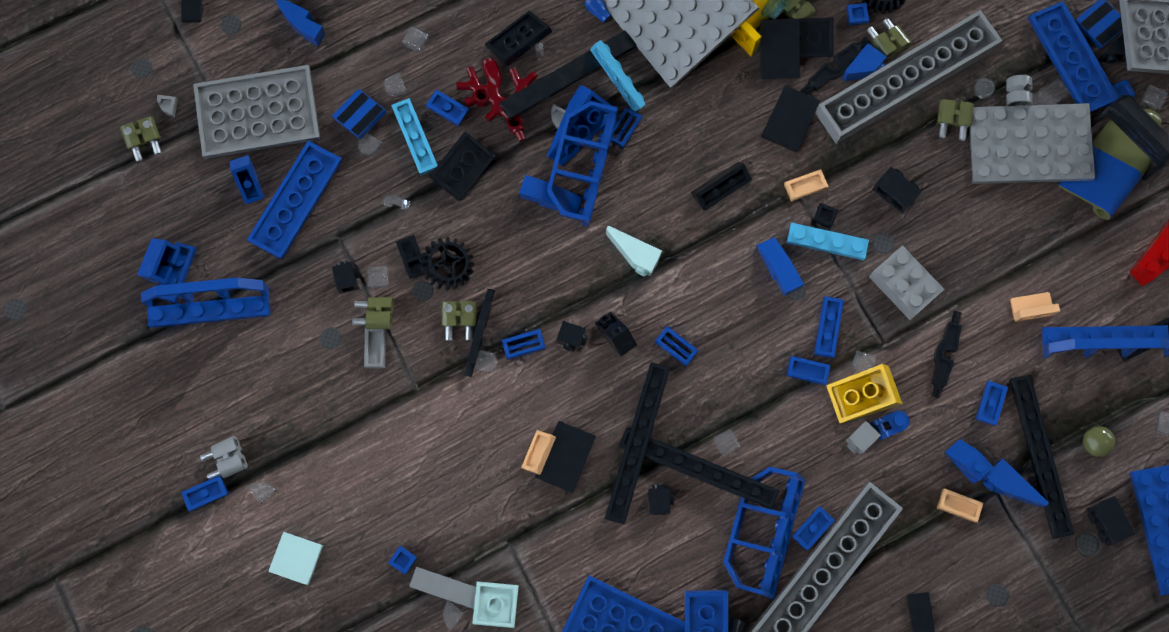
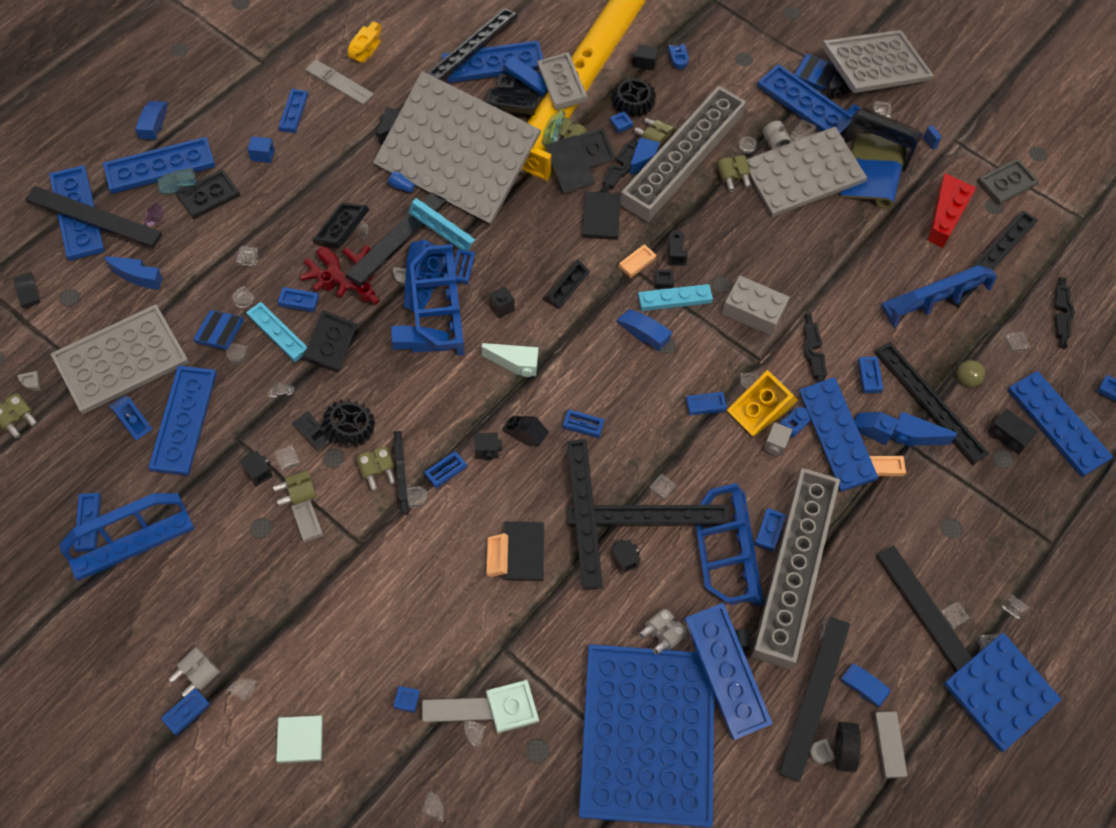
camera: 25 degrees left, 15 degrees down
(157, 252) = (63, 508): blue piece -> none
(646, 184) = (501, 302): none -> black brick
(666, 588) = (665, 629): none -> light grey piece
(828, 327) = (707, 363): blue tile -> none
(851, 184) = (676, 254): none -> black leg
(897, 189) = (714, 239): black brick -> none
(927, 455) = (838, 434): none -> blue plate
(1033, 307) = (867, 291): light nougat panel -> none

